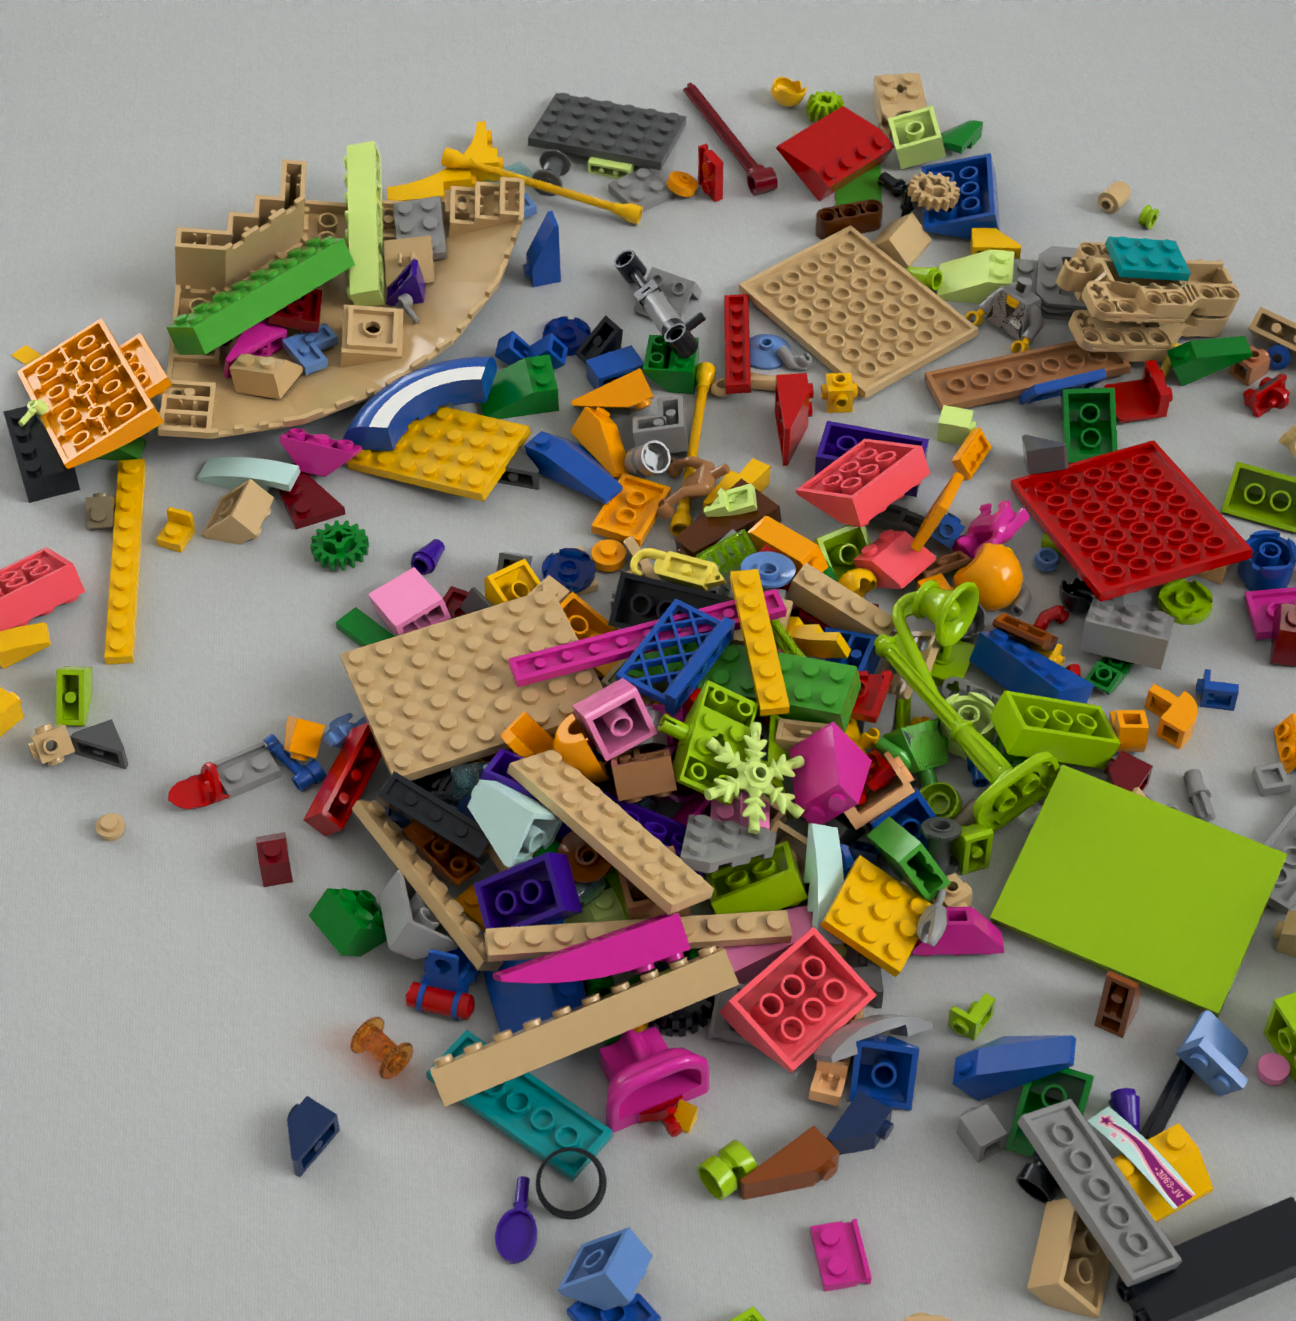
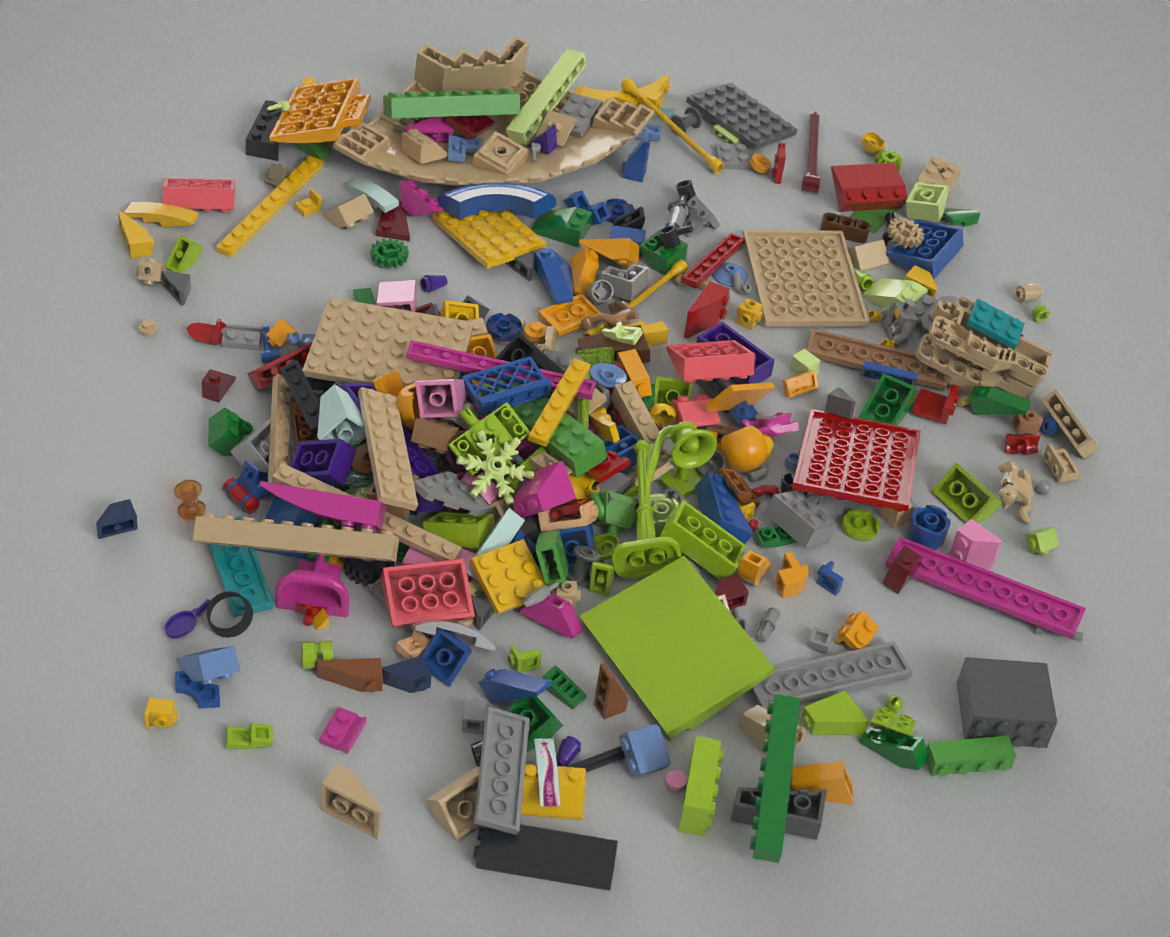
camera: 25 degrees right, 5 degrees down
(680, 568) = (554, 347): light yellow plate -> none
(1042, 1015) = (558, 677): none -> green slope

